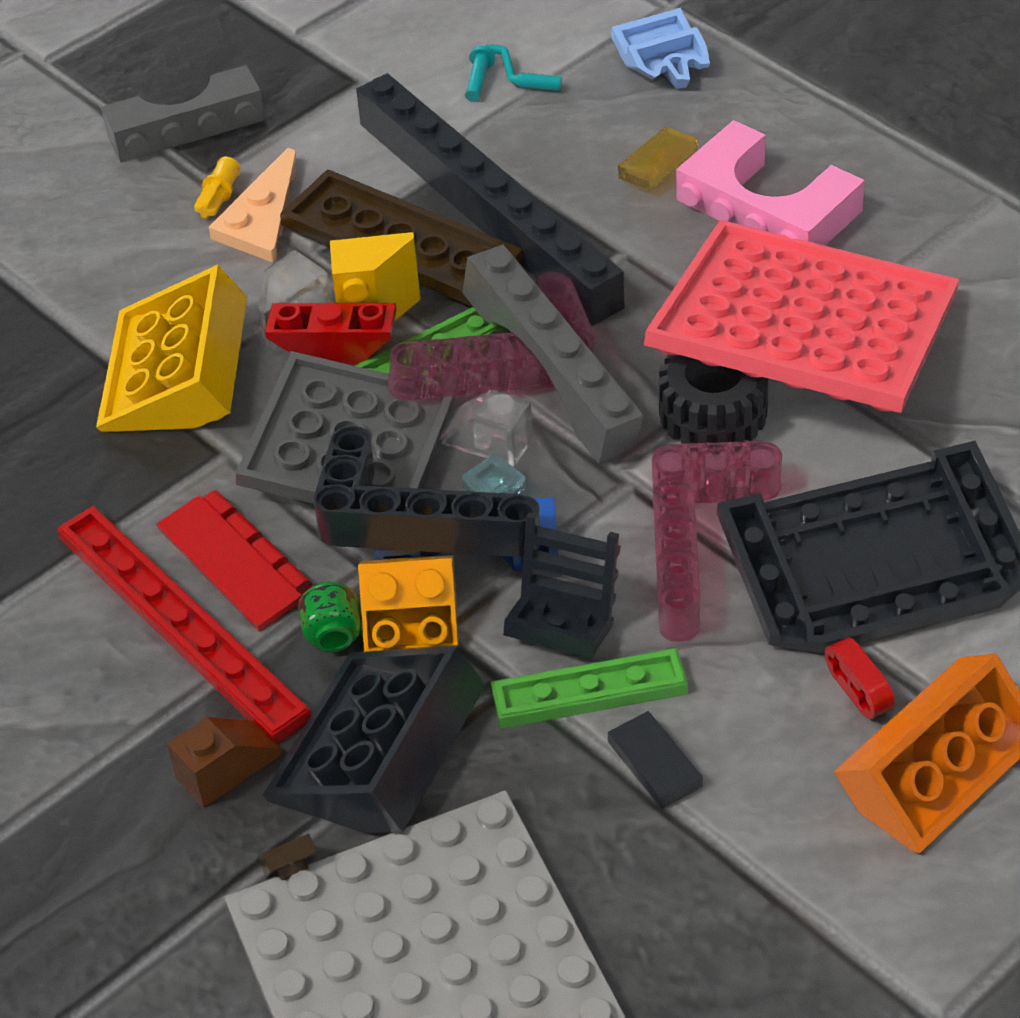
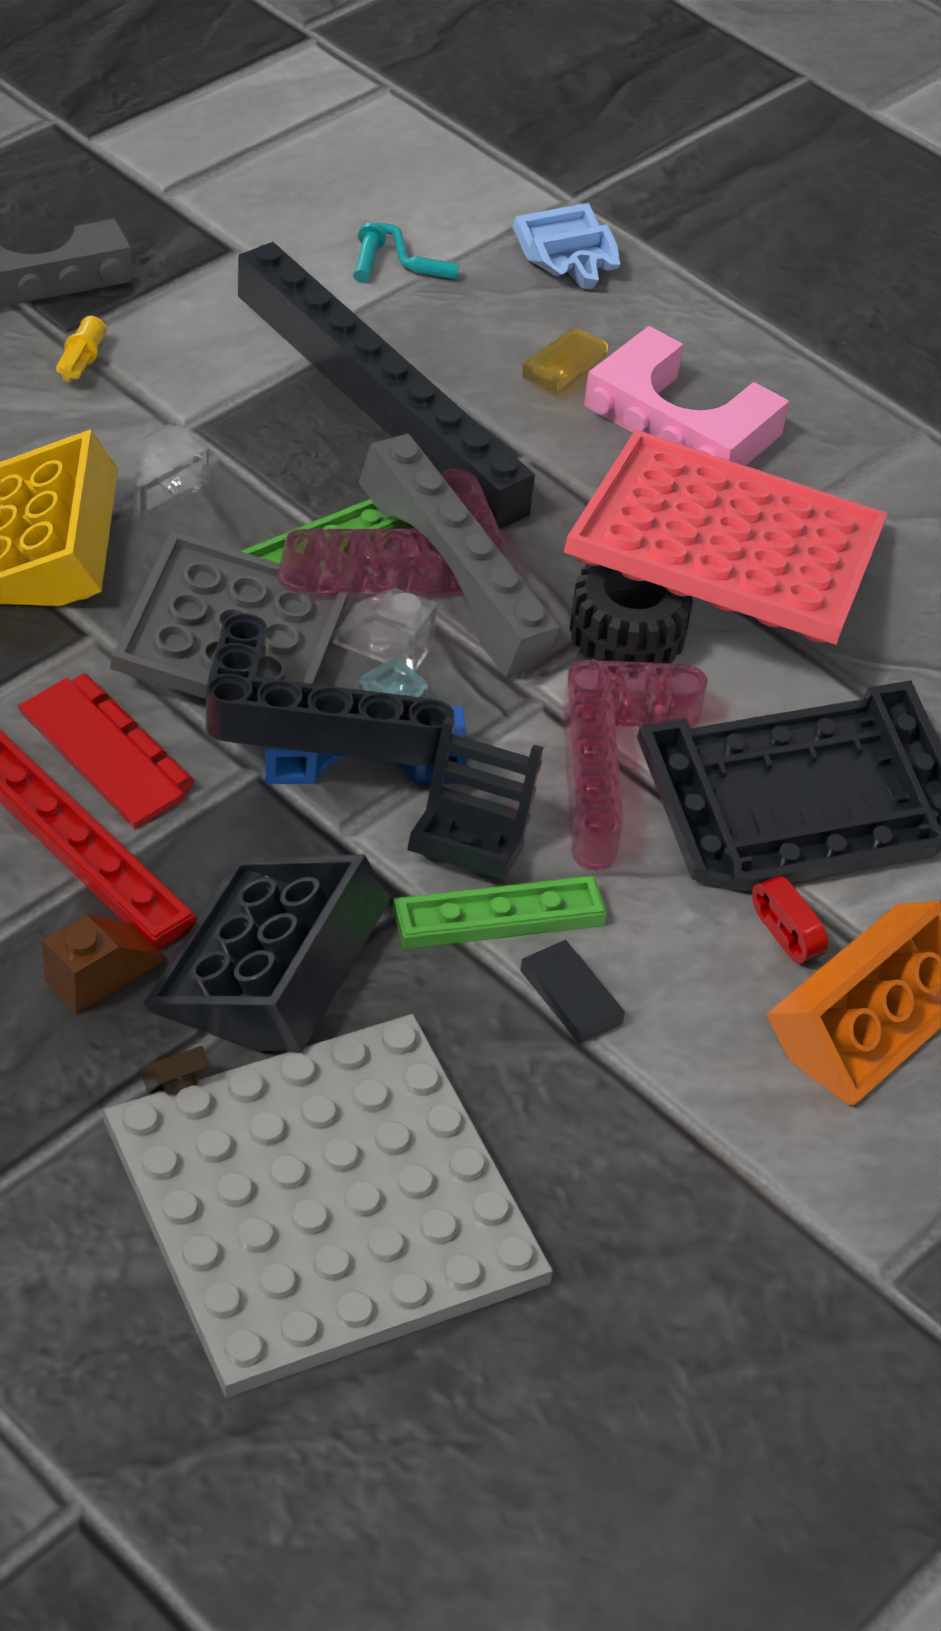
camera: 10 degrees left, 0 degrees up
(254, 217) = (126, 381): light nougat wing -> none
(330, 616) = (217, 817): green head -> none
(331, 330) = (215, 510): red slope -> none
(347, 209) = (273, 414): dark brown plate -> none
(376, 270) = (261, 462): yellow slope -> none
(408, 603) = (304, 807): light orange slope -> none

